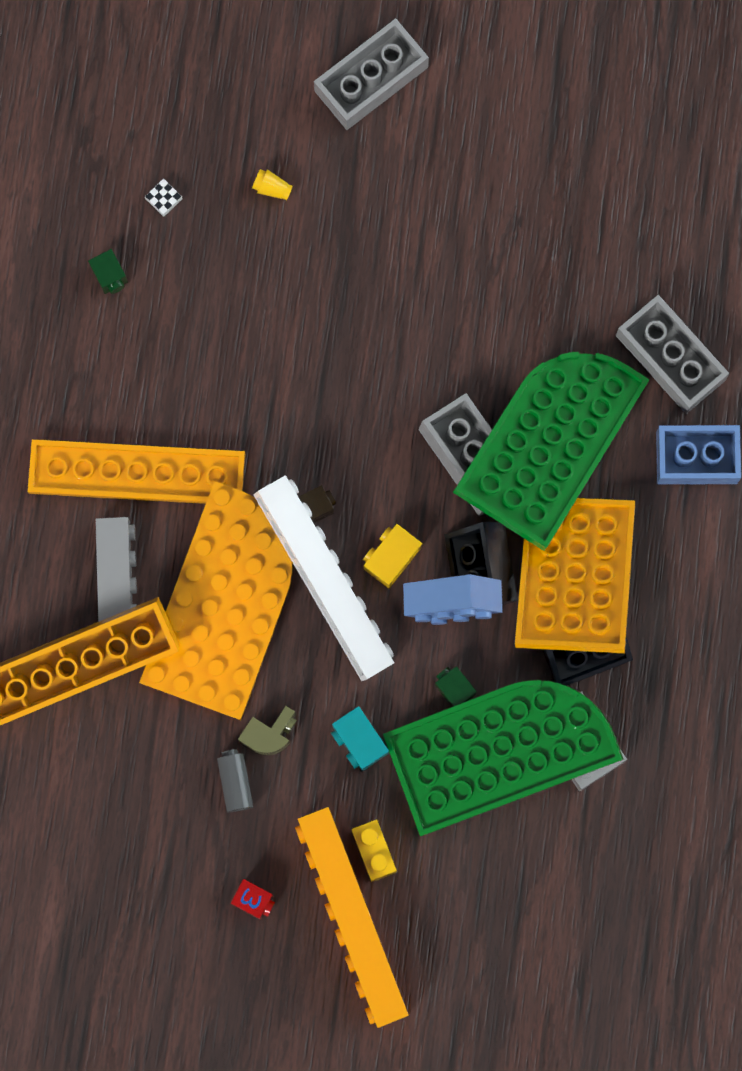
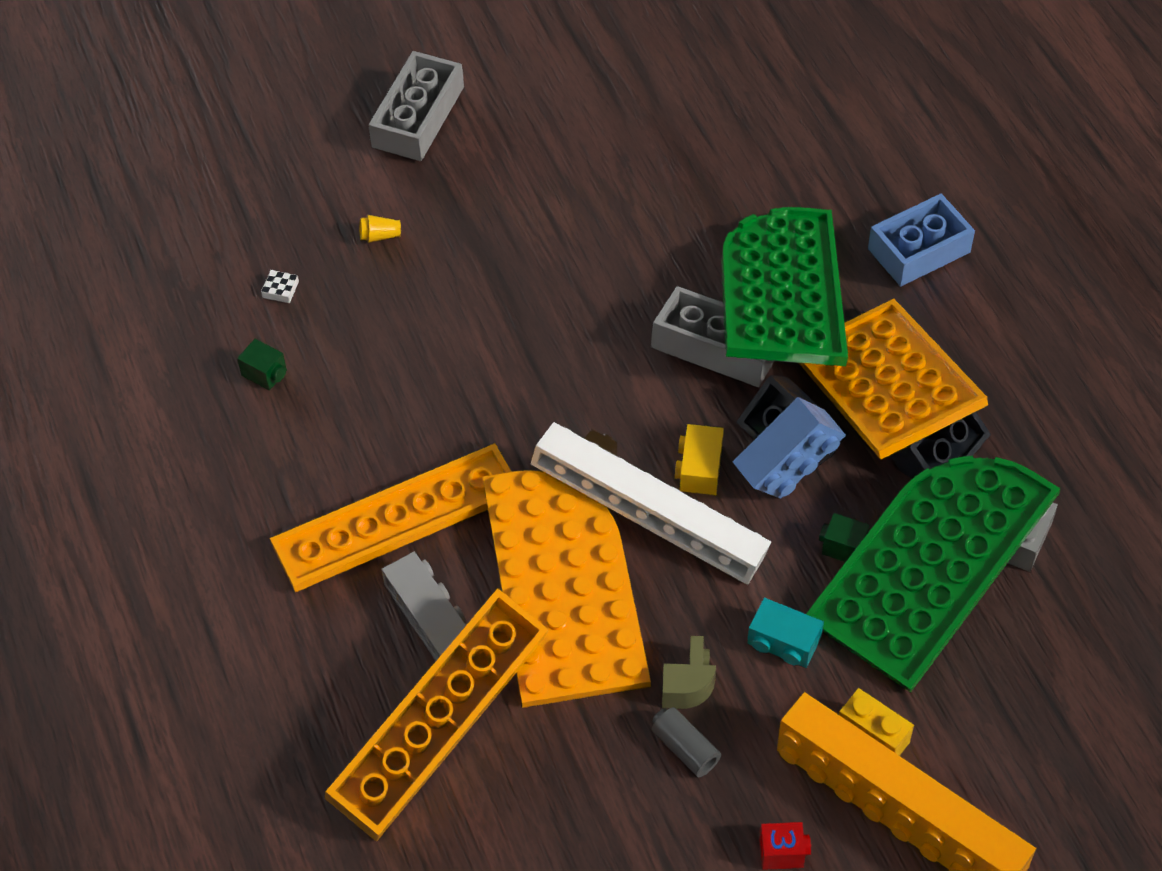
camera: 30 degrees left, 25 degrees down
(672, 354) = (837, 178): light grey brick -> none

